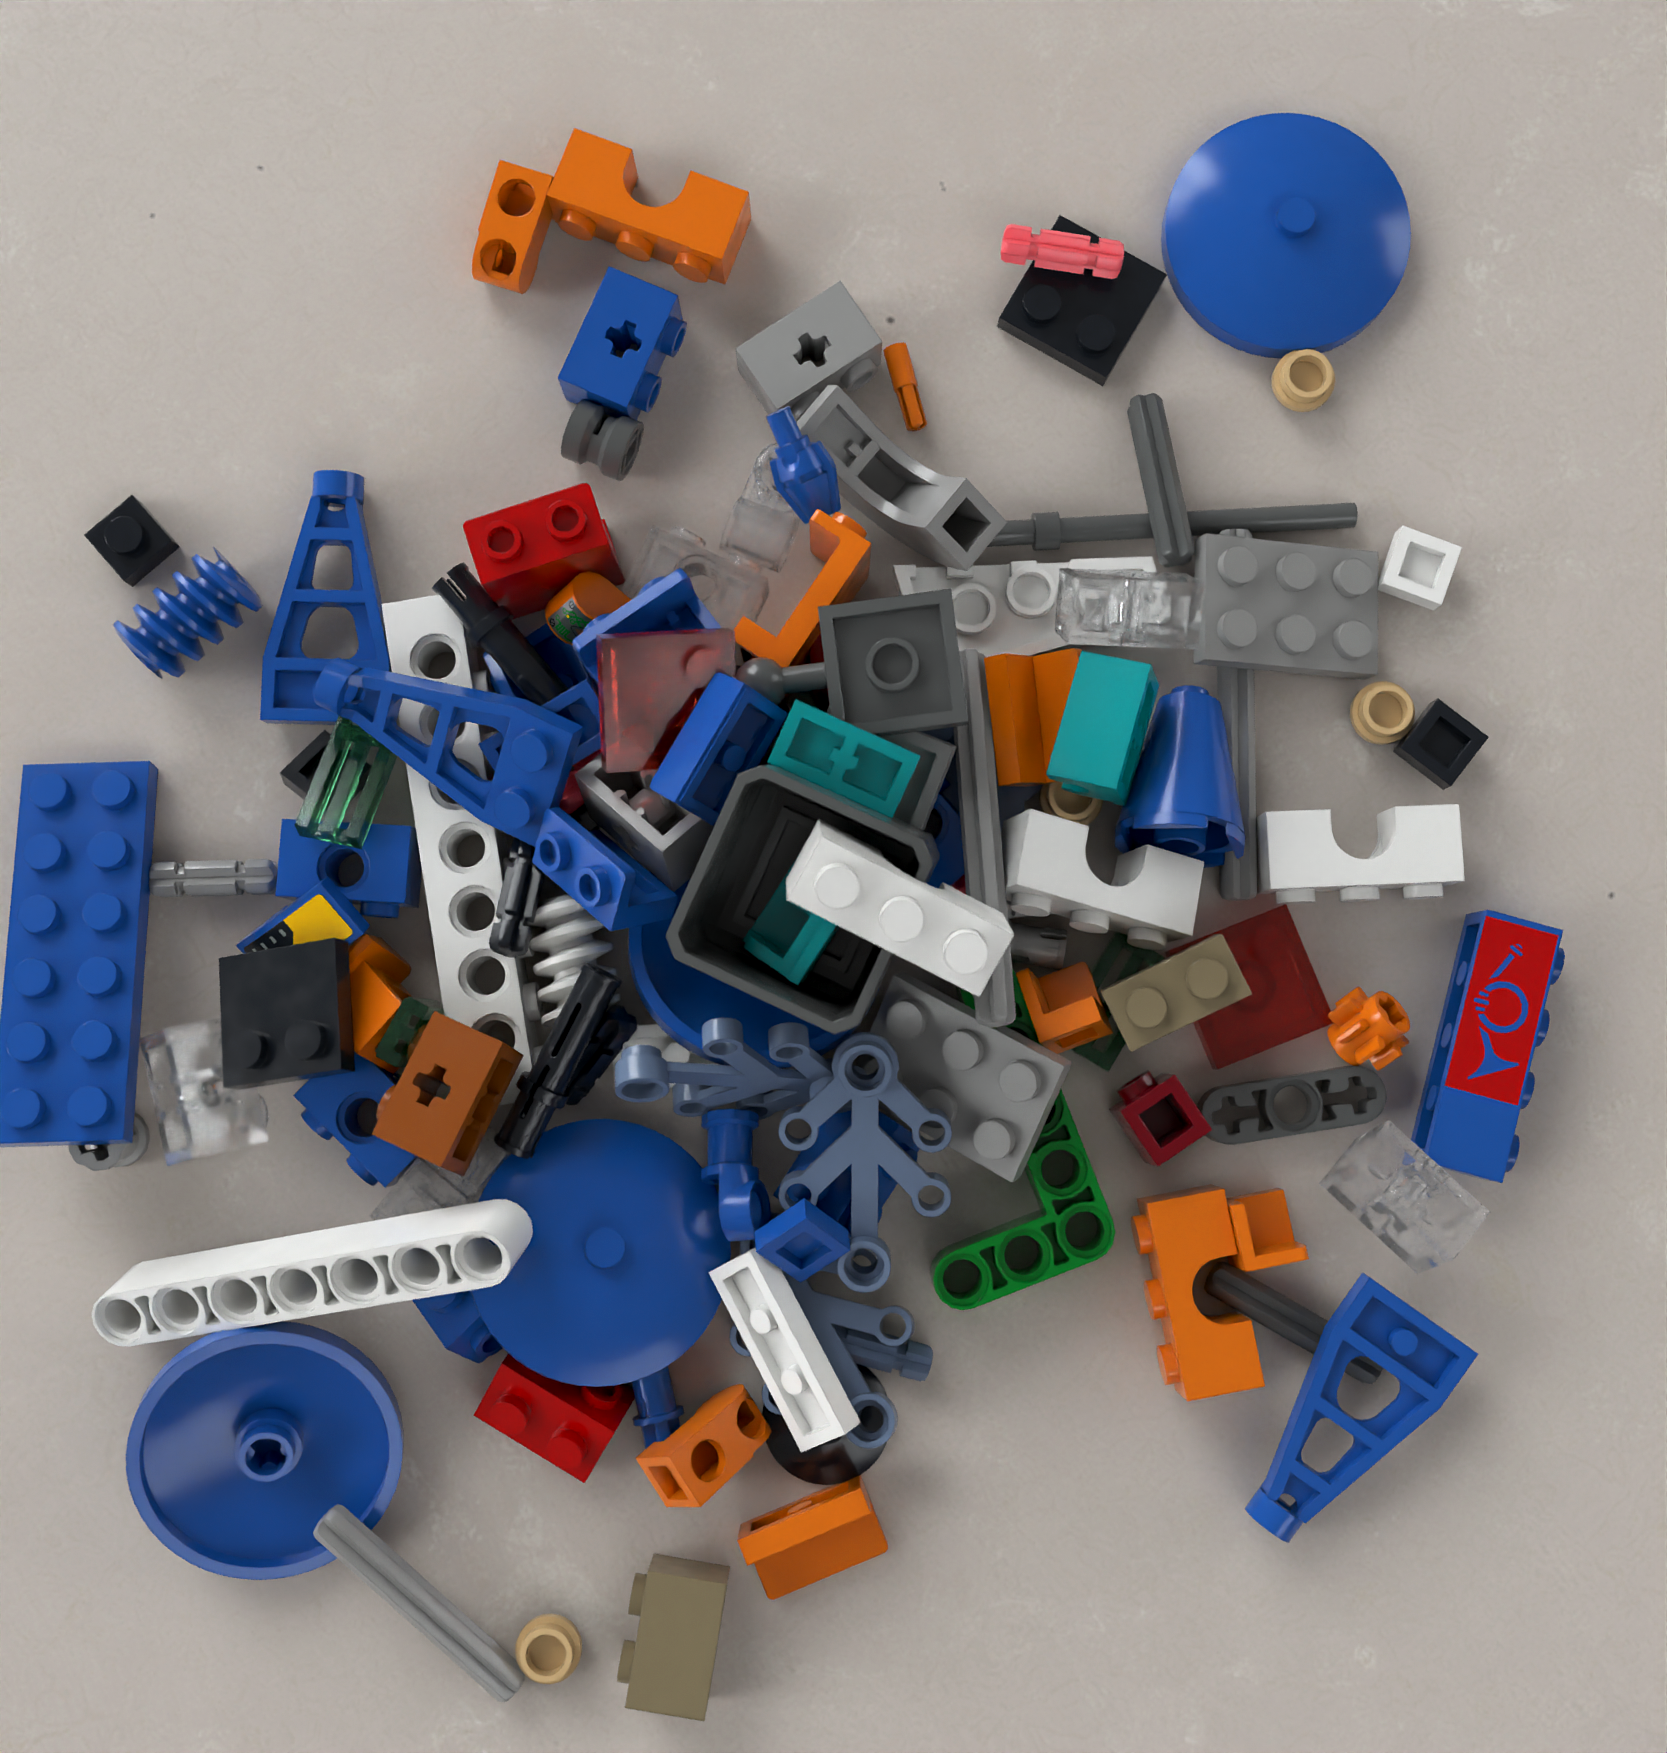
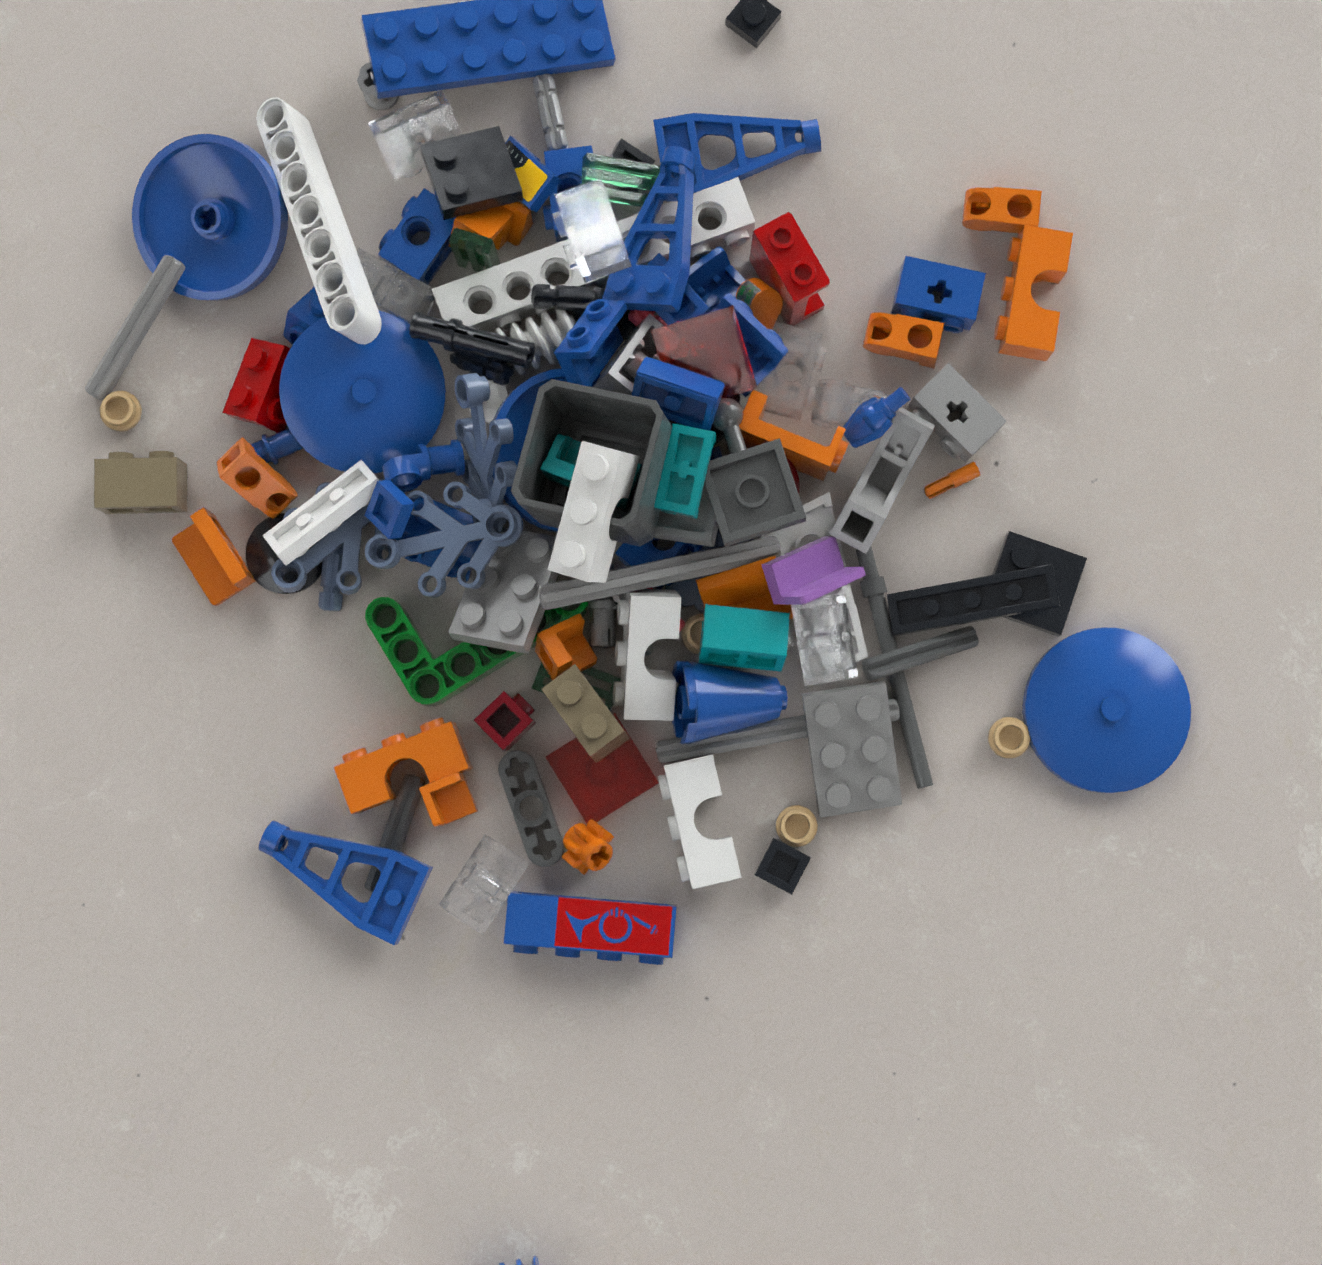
camera: 85 degrees right, 0 degrees up
(189, 615) = (710, 64): blue piece -> none
(424, 837) = (592, 231): none -> clear brick
(452, 1127) = (418, 279): dark orange brick -> none
(497, 635) = (731, 251): black pin -> none
(602, 439) = (875, 291): dark grey wheel -> none
(679, 408) = (904, 337): none -> orange leg
(1026, 609) = (808, 572): none -> medium lavender panel
(1062, 251) = (1059, 555): coral axle -> none
(1099, 382) = (973, 600): none -> black plate
(1418, 568) = (896, 832): white plate -> none

